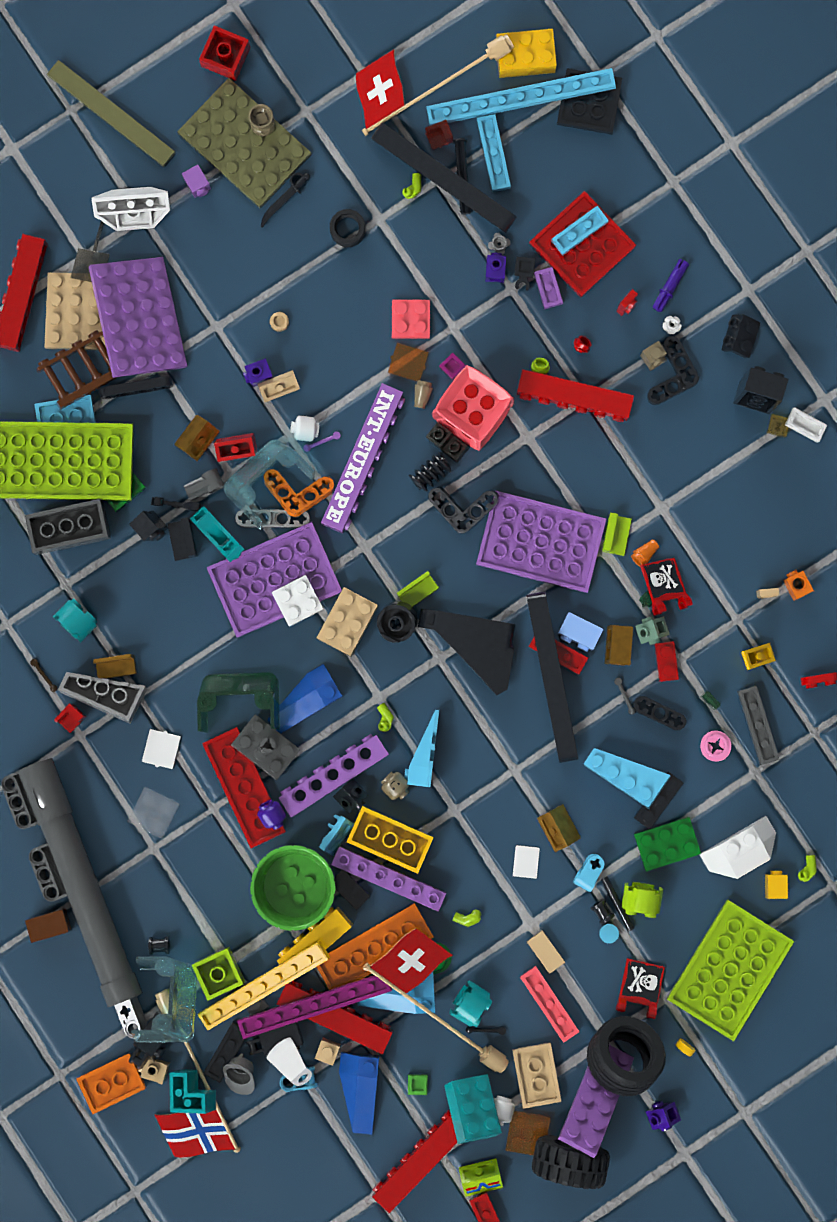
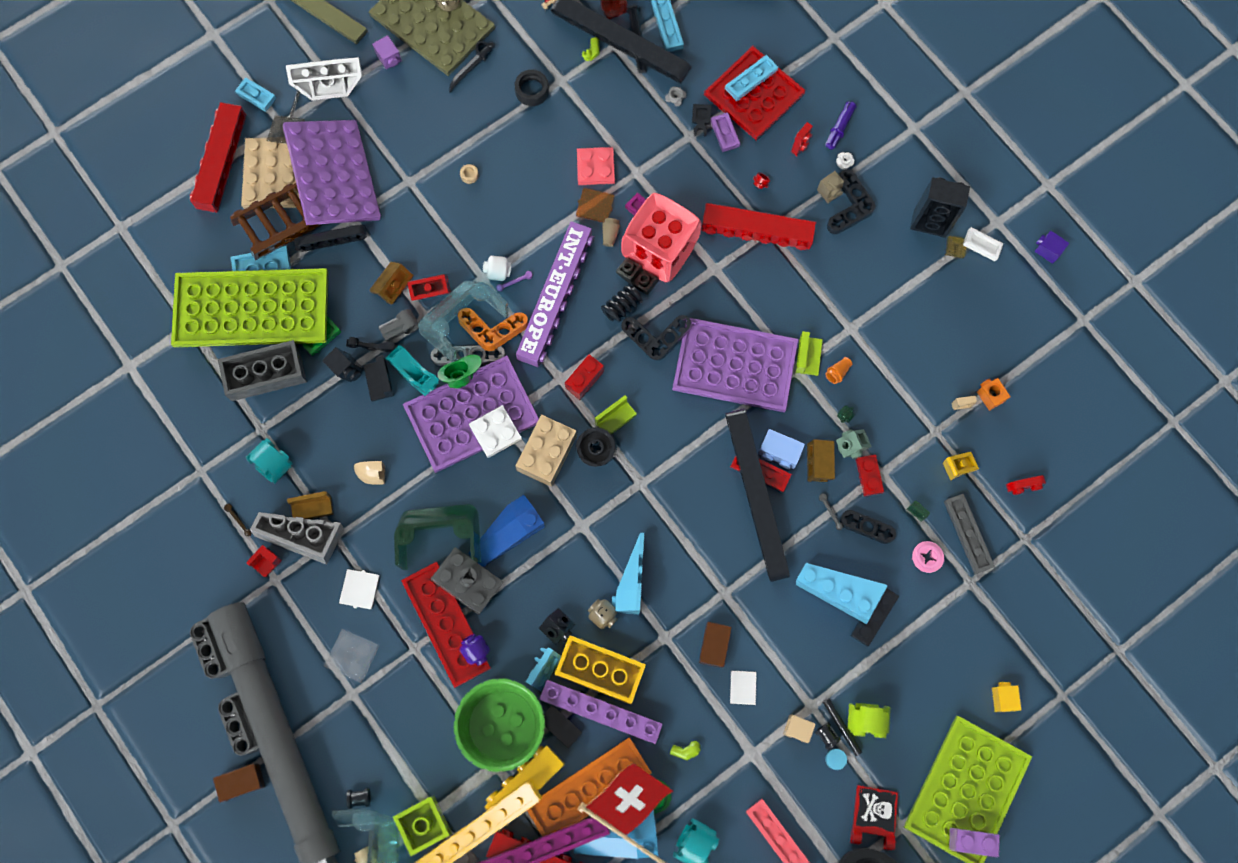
camera: 10 degrees left, 10 degrees down
(58, 223) = (255, 94): none -> medium azure plate
(173, 634) = (370, 472): none -> tan brick
(257, 372) = (450, 219): dark purple brick -> none
(265, 538) = (460, 372): none -> green piece
(278, 386) = (470, 230): tan plate -> none
(294, 806) = (492, 629): medium lavender brick -> none
(386, 719) = (590, 545): lime arm -> none
(388, 548) = (584, 377): none -> red brick
(478, 641) = (680, 462): black panel -> none
(495, 268) = (674, 116): dark purple brick -> none
(501, 821) = (715, 645): none -> reddish brown panel
(540, 365) = (723, 200): lime plate -> none
(545, 951) = (771, 782): tan tile -> none
(559, 828) = (774, 650): pearl gold panel -> none
(575, 904) = (799, 728): none -> tan panel
(588, 876) = (809, 698): medium azure piece -> none
(665, 584) = (862, 400): flag -> none
(667, 844) = (888, 660): green plate -> none
(728, 1016) = (974, 842): none -> medium lavender brick
(741, 335) = (911, 166): black bracket -> none
(742, 850) = (966, 663): white wedge -> none
(809, 870) = (1037, 680): lime arm -> none

